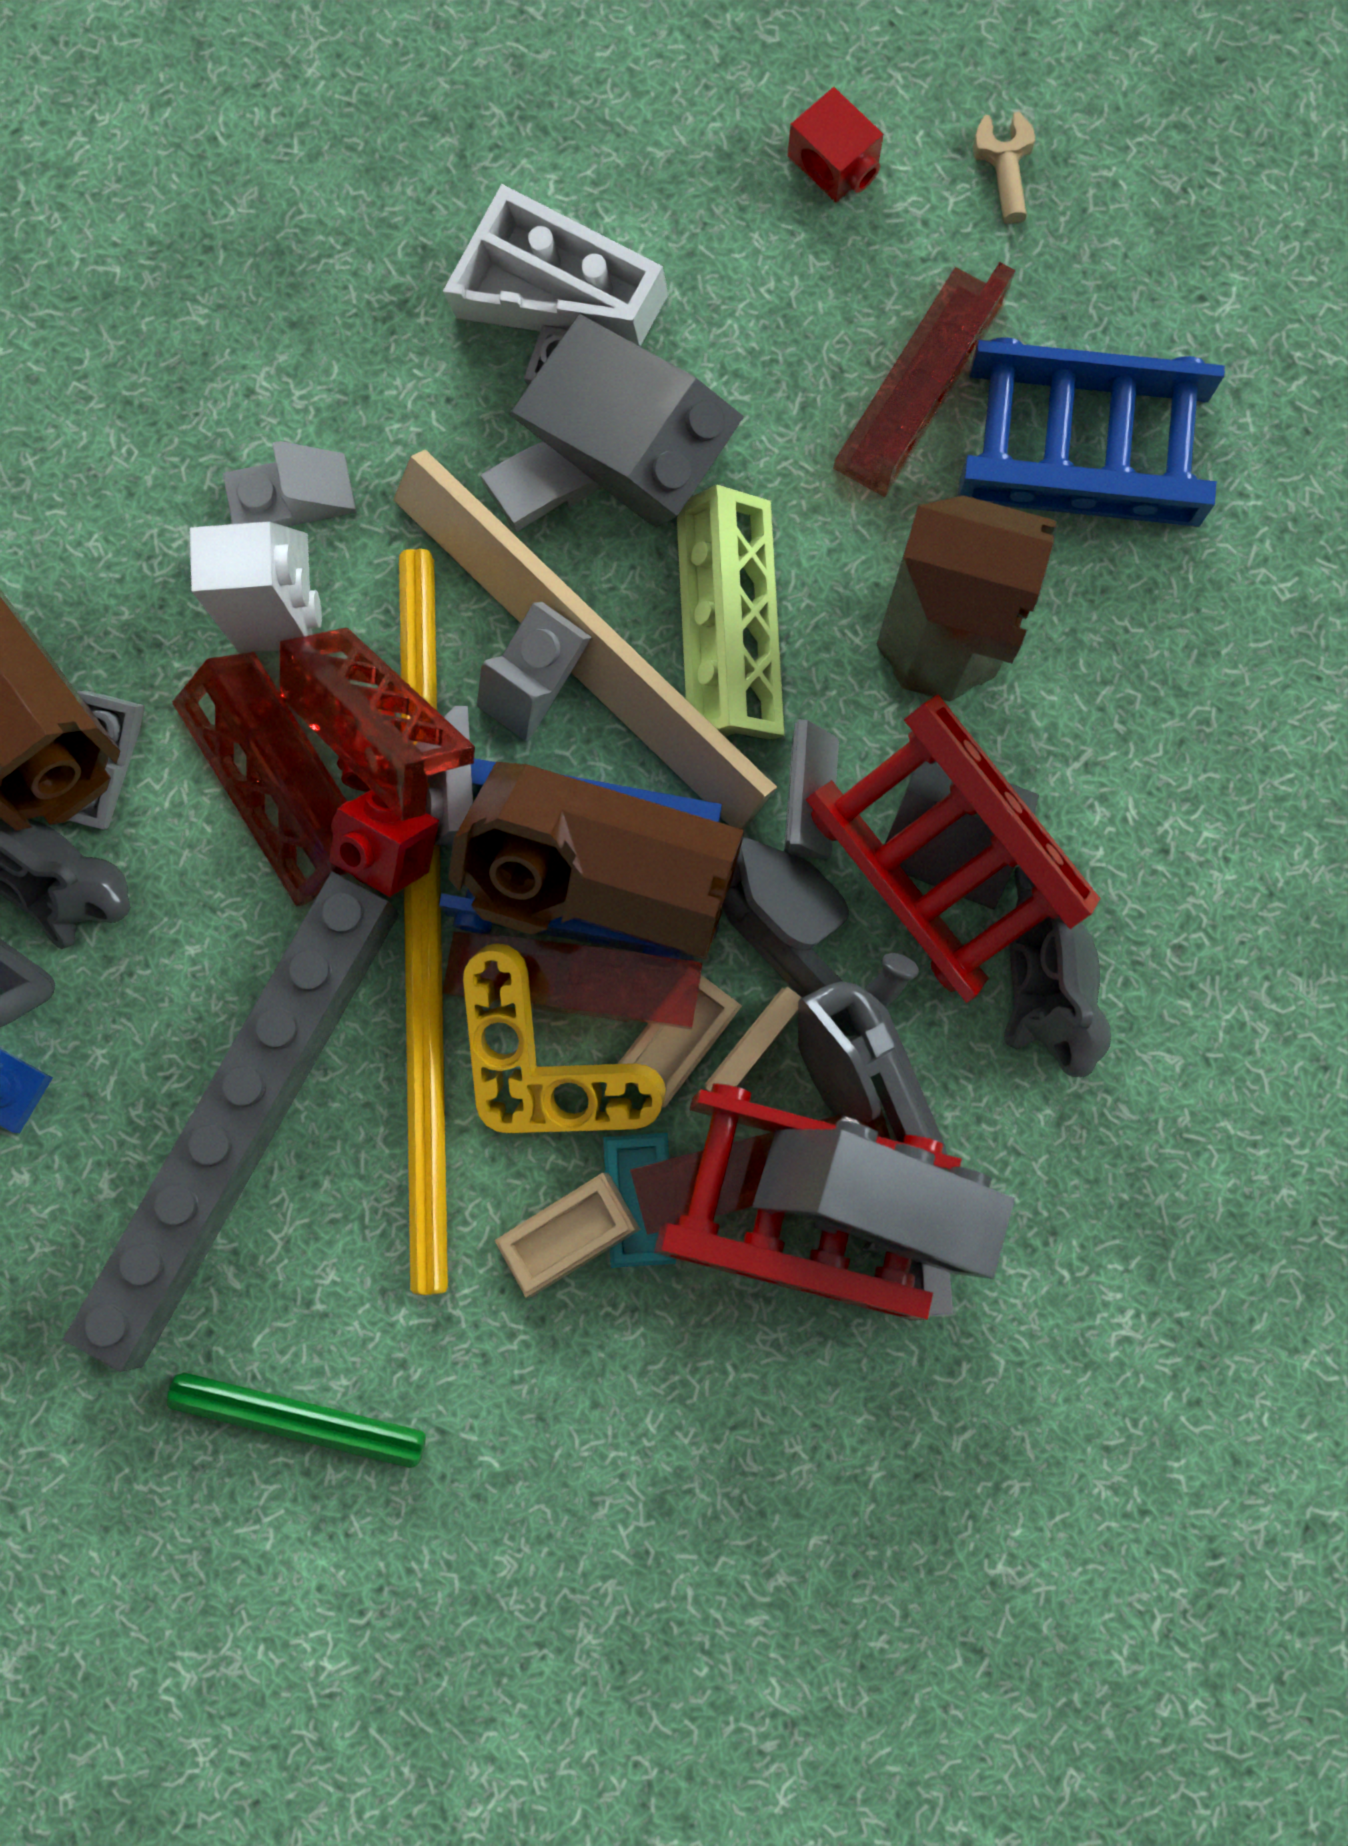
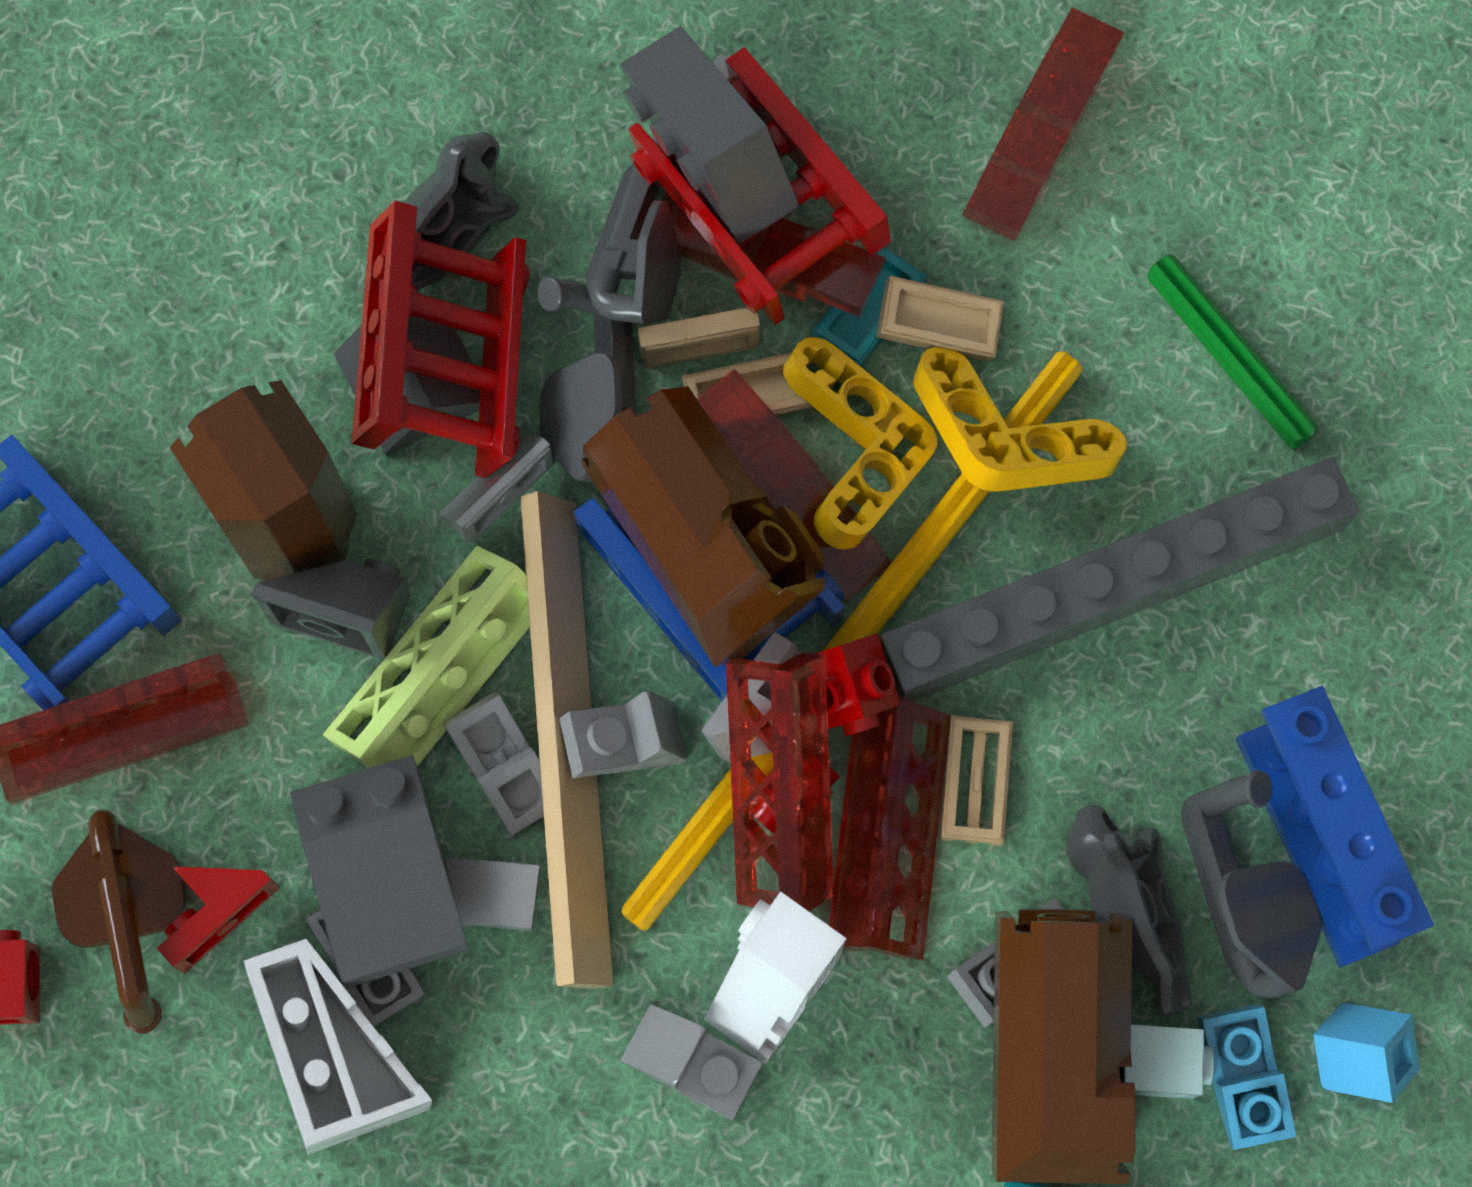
camera: 145 degrees left, 5 degrees down
(264, 914) = (972, 832): none -> tan tile
(415, 1153) = (1001, 456): none -> yellow beam
(619, 589) = (500, 760): none -> light grey slope
(621, 1502) = (1043, 124): none -> clear red slope
(733, 319) = (228, 900): none -> red slope
(818, 264) = (113, 895): none -> reddish brown piece
(835, 583) = (339, 604): none -> dark grey slope

